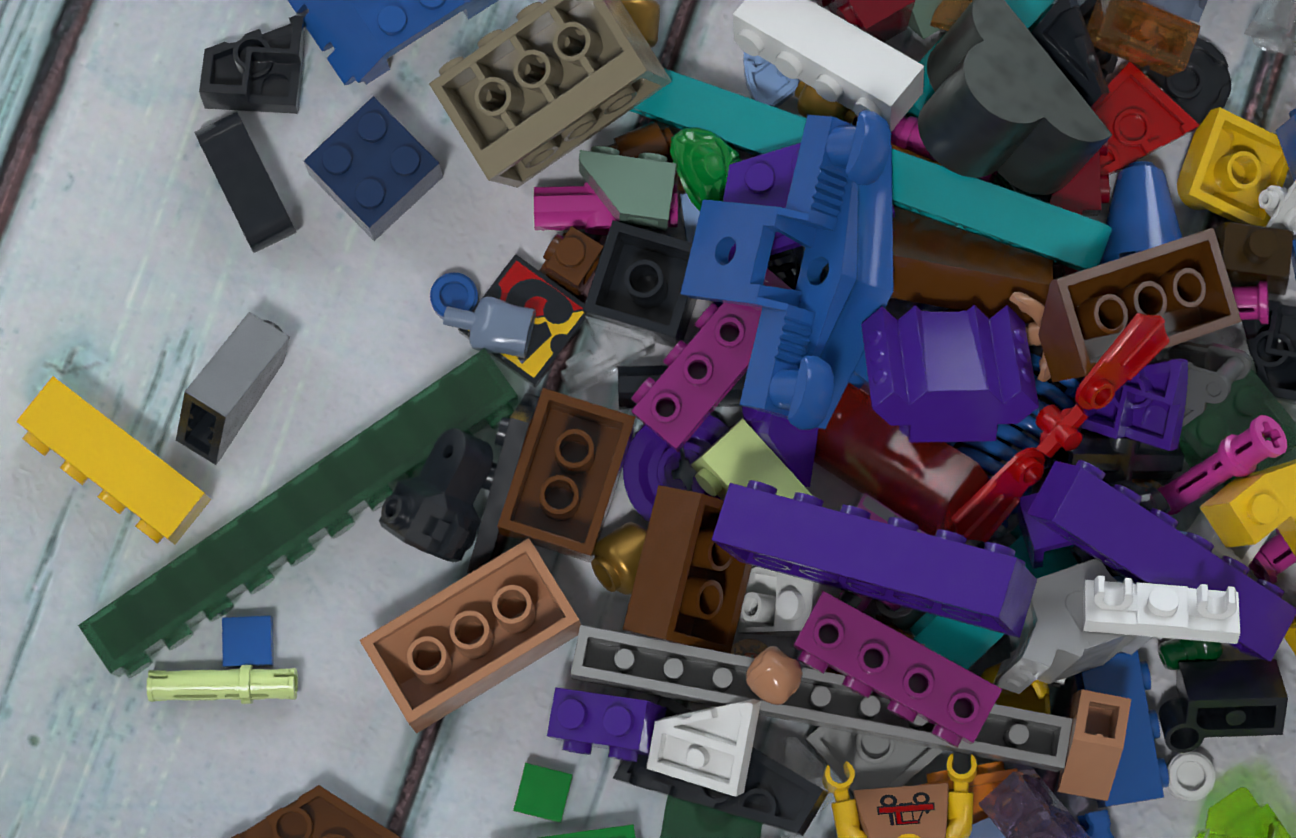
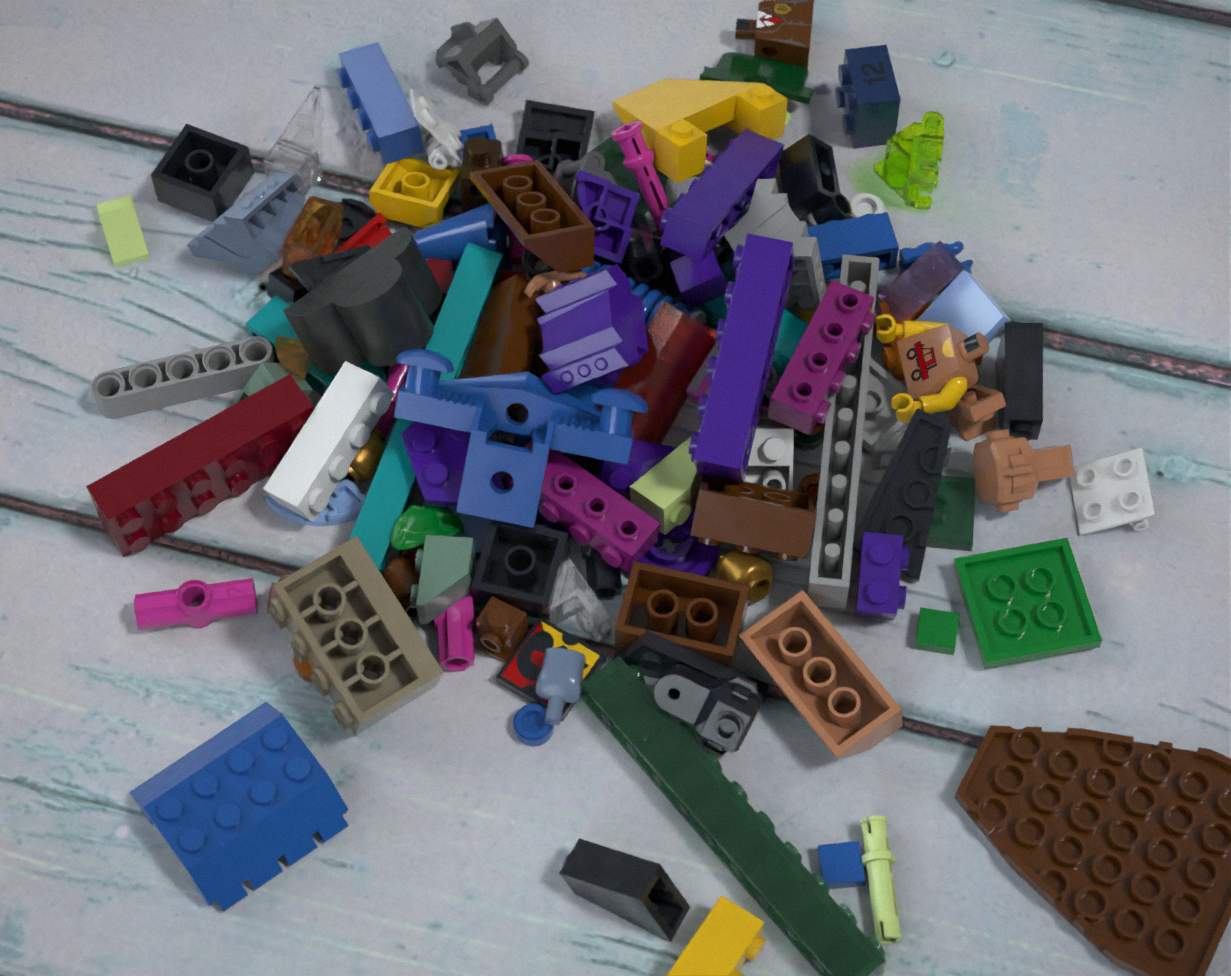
camera: 90 degrees left, 20 degrees down
(245, 182) = (439, 895): black beam -> none
(256, 71) = (337, 896): black slope -> none
(373, 168) = (426, 787): dark blue brick -> none
(707, 746) = (891, 491): white wing -> none
(774, 676) = (837, 436): nougat piece -> none
(1094, 744) = (857, 236): nougat slope -> none
(1121, 362) = (632, 252): red piece -> none
(1161, 610) = (764, 180): white plate -> none

